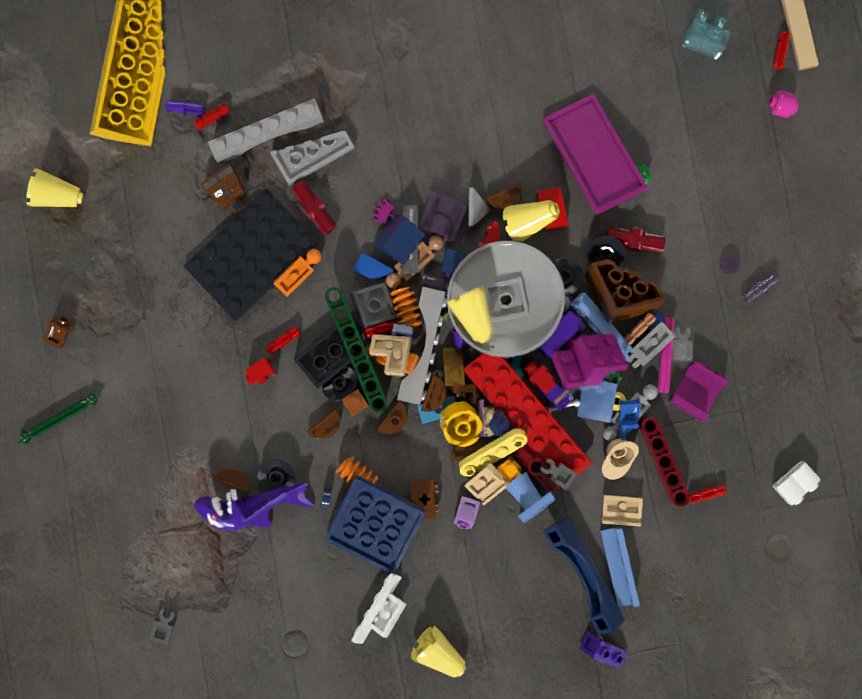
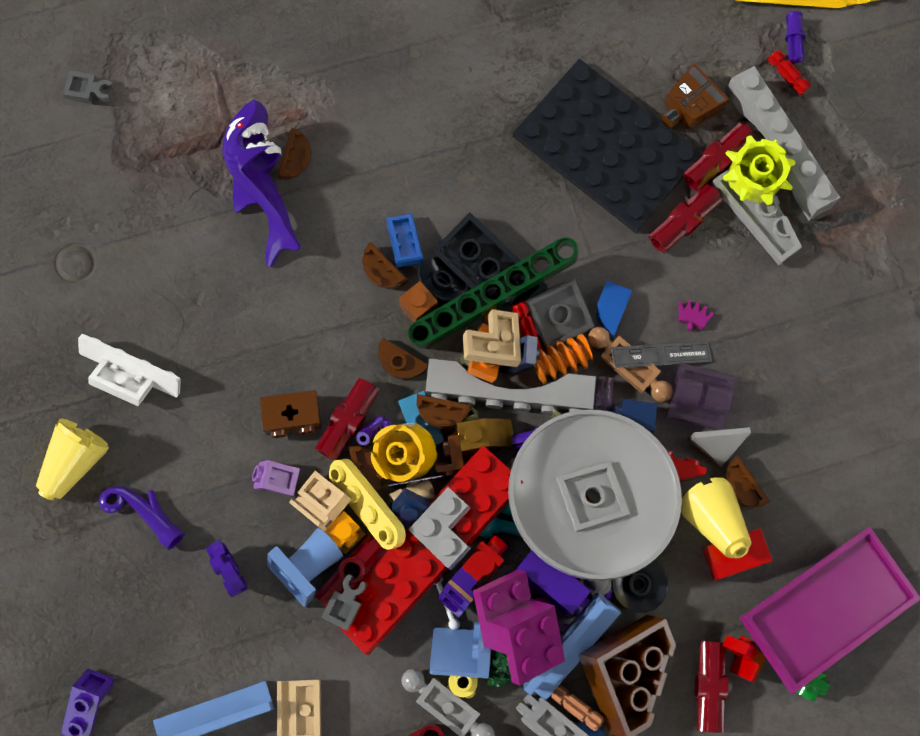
camera: 75 degrees right, 10 degrees down
(259, 372) = (446, 172): red brick -> none
(267, 479) = (305, 197): black dish -> none
(271, 177) = (714, 158): none -> dark red piece
(283, 340) = (494, 199): red axle -> none
(286, 141) = (761, 156): none -> neon yellow brick
(297, 272) = (591, 206): orange plate -> none
(307, 407) = (404, 240): none -> blue plate
(325, 498) = (280, 279): dark blue tile -> none
(352, 469) = (315, 317): orange piece -> none
(375, 524) = (247, 348): dark blue plate -> none
(399, 238) = (659, 339): dark blue slope -> none
(431, 460) = (347, 419): none -> dark red piece
(442, 446) = (372, 429): none -> dark purple arm
(473, 314) = (566, 444): light yellow cone -> none
(479, 601) = (168, 534): none -> dark purple plant
(517, 408) = (435, 528): none -> light grey plate
(524, 552) = (225, 564): none -> dark purple plate
(602, 607) = (149, 695): dark blue arch -> none
(616, 254) = (684, 628): black dish -> none
(619, 458) = (376, 696): tan piece -> none
(622, 214) = (747, 660): none -> red bracket
(628, 417) = (441, 702): blue slope -> none

